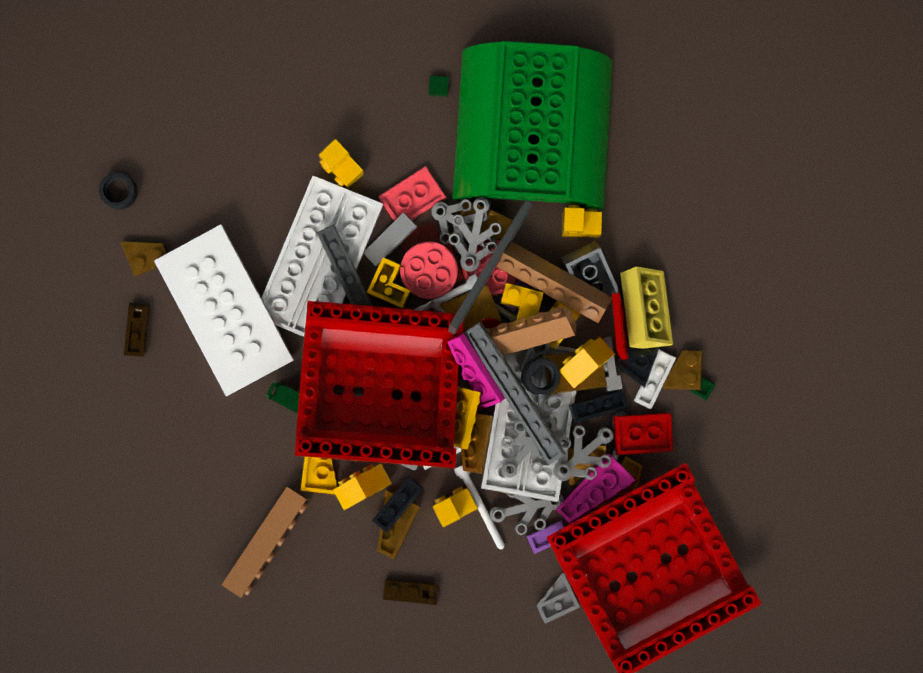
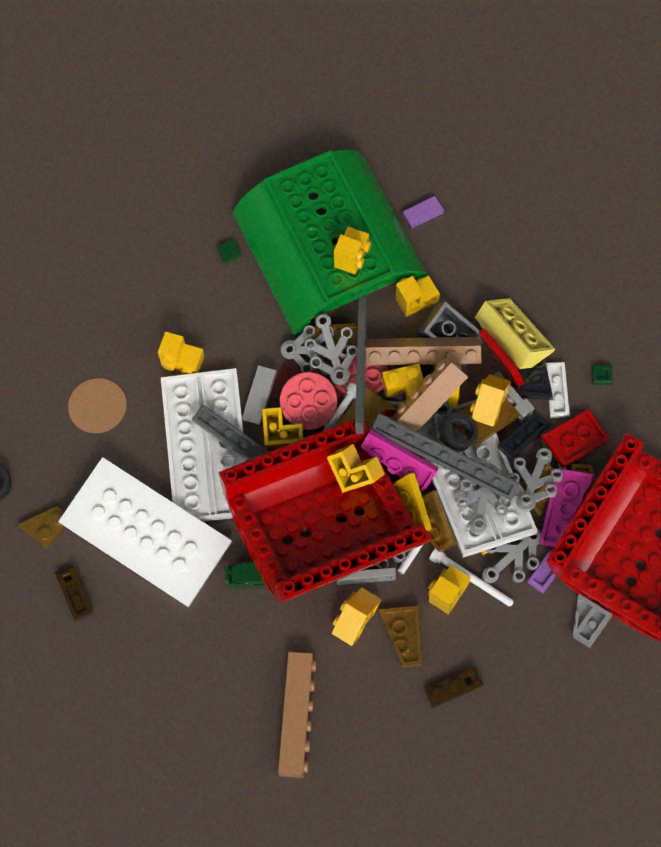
camera: 25 degrees left, 15 degrees down
(246, 168) = (97, 405): none -> medium nougat sticker
(318, 475) = (307, 624): yellow wing -> none
(398, 504) = (397, 614): black tile -> none
(412, 195) = (259, 348): coral tile -> none
(426, 360) = (351, 471): none -> yellow brick
(539, 157) = (351, 249): none -> yellow brick
(634, 144) = (423, 212): none -> medium lavender tile
(686, 372) = (580, 369): pearl gold wing -> none

